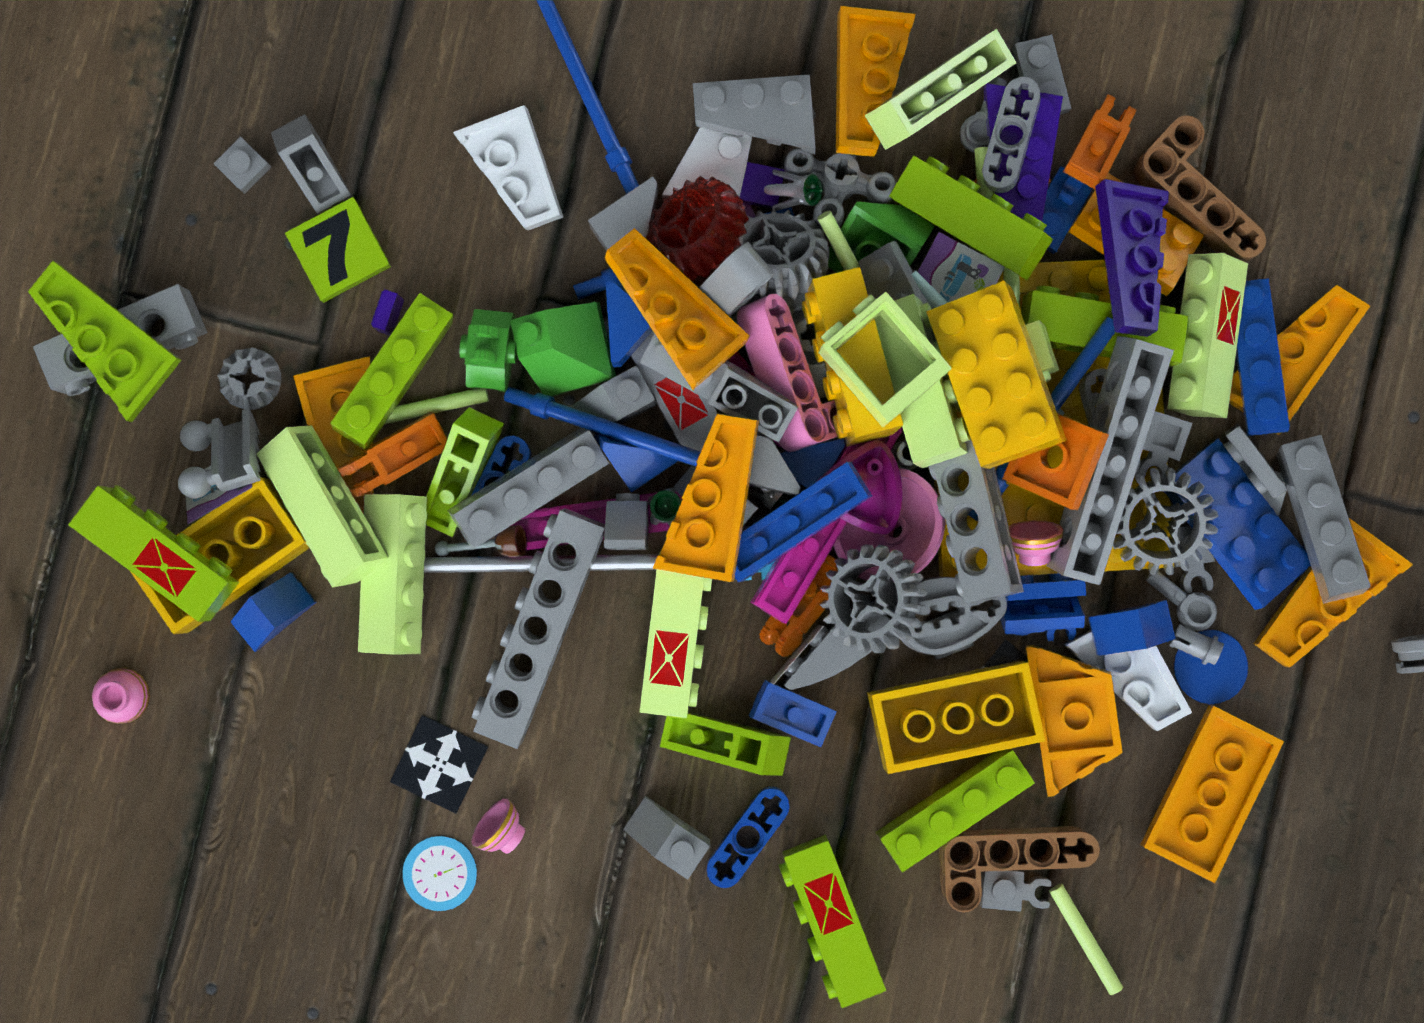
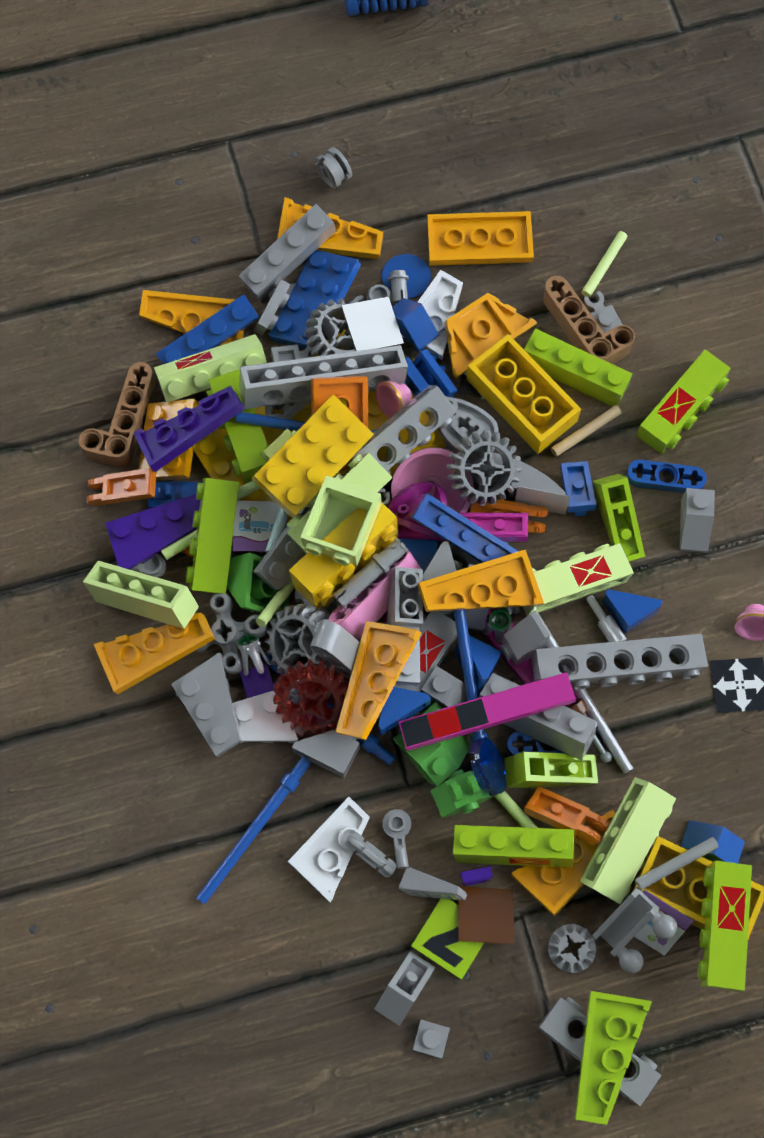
camera: 120 degrees left, 15 degrees down
(259, 542) = (676, 863): none -> light grey bar
(338, 300) = (486, 915): none -> reddish brown sticker
(394, 590) = (657, 763): yellowish green brick -> none
(409, 247) = (424, 885): none -> light grey slope
(479, 205) = (370, 854): none -> light grey axle
(496, 391) = (488, 766): none -> clear blue tile
(498, 256) = (397, 826): none -> light grey plate
(558, 423) = (487, 711): none -> dark pink tile
(598, 683) = (630, 609): none -> blue slope
(600, 646) = (606, 623): none -> white axle
(812, 390) = (378, 565): none -> light grey pin
(865, 773) = (585, 431): none -> tan bar
(1029, 110) = (167, 526): light grey beam -> none
(1040, 62) = (91, 549): light grey plate -> none
(1152, 568) = (372, 324): none -> white sticker

